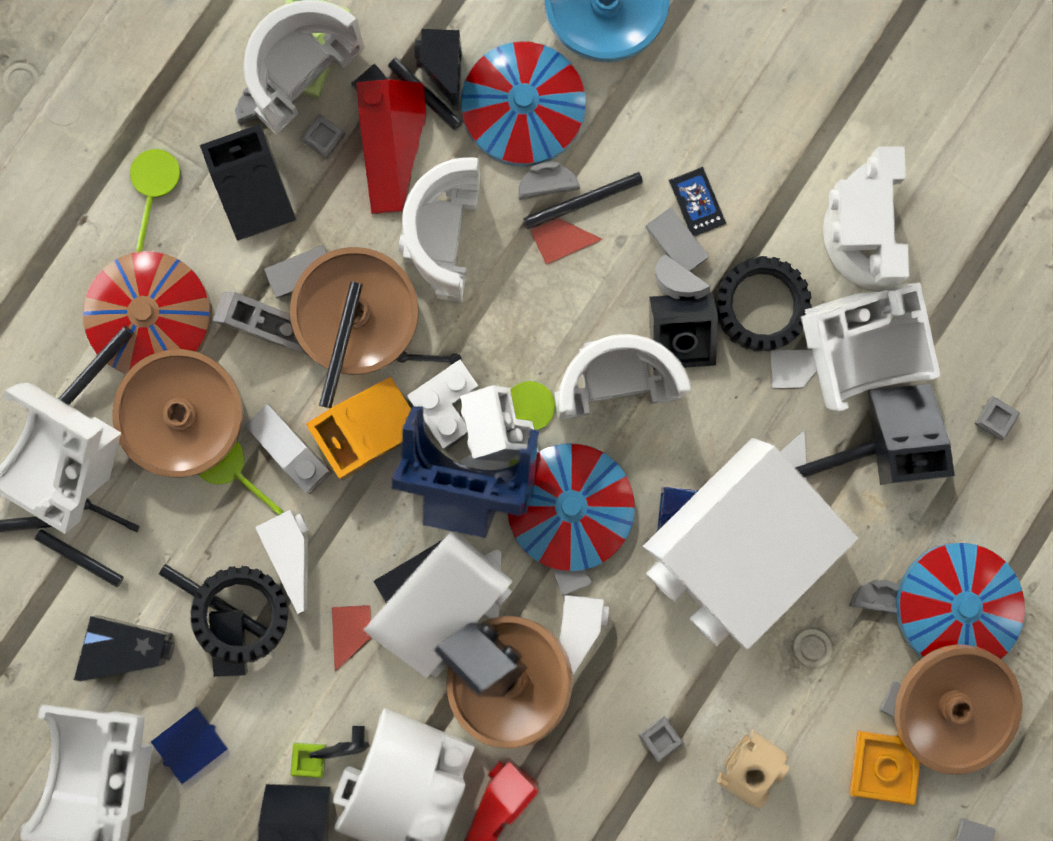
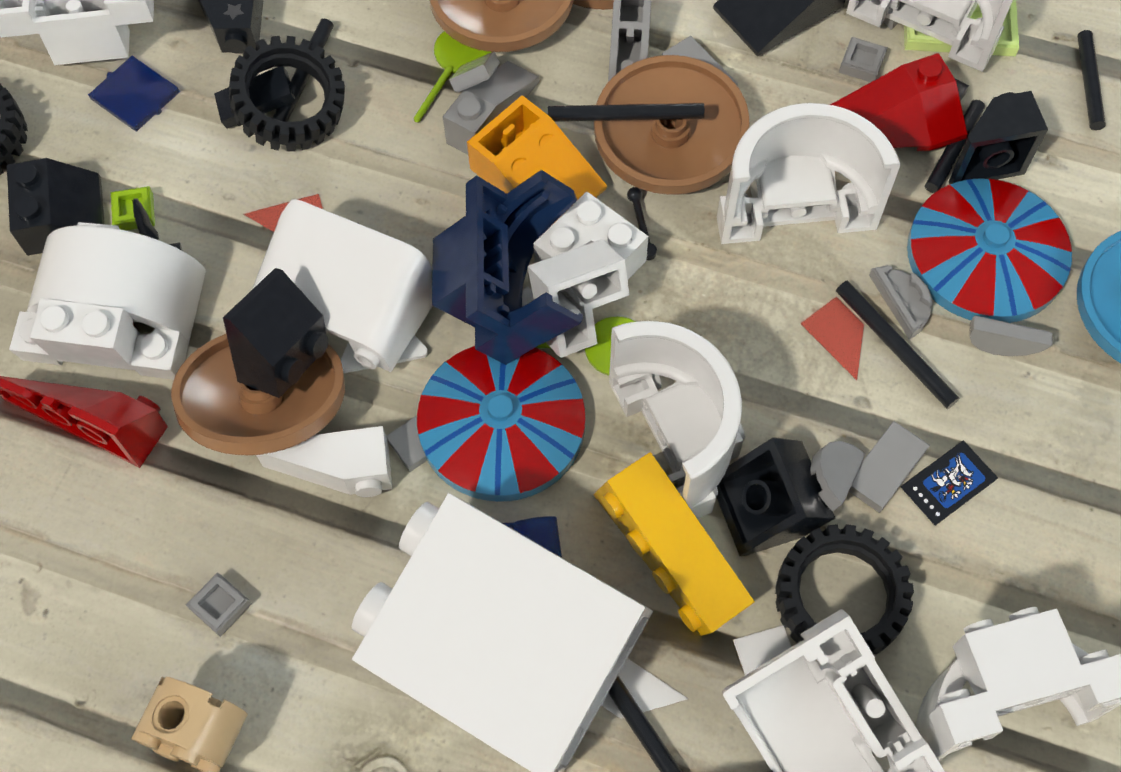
camera: 80 degrees right, 20 degrees down
(262, 456) = (474, 72): none -> light grey tile
(288, 550) = (366, 131): white slope -> none
(605, 119) = (1007, 338): none -> light grey tile
(702, 410) = (673, 545): none -> yellow wedge

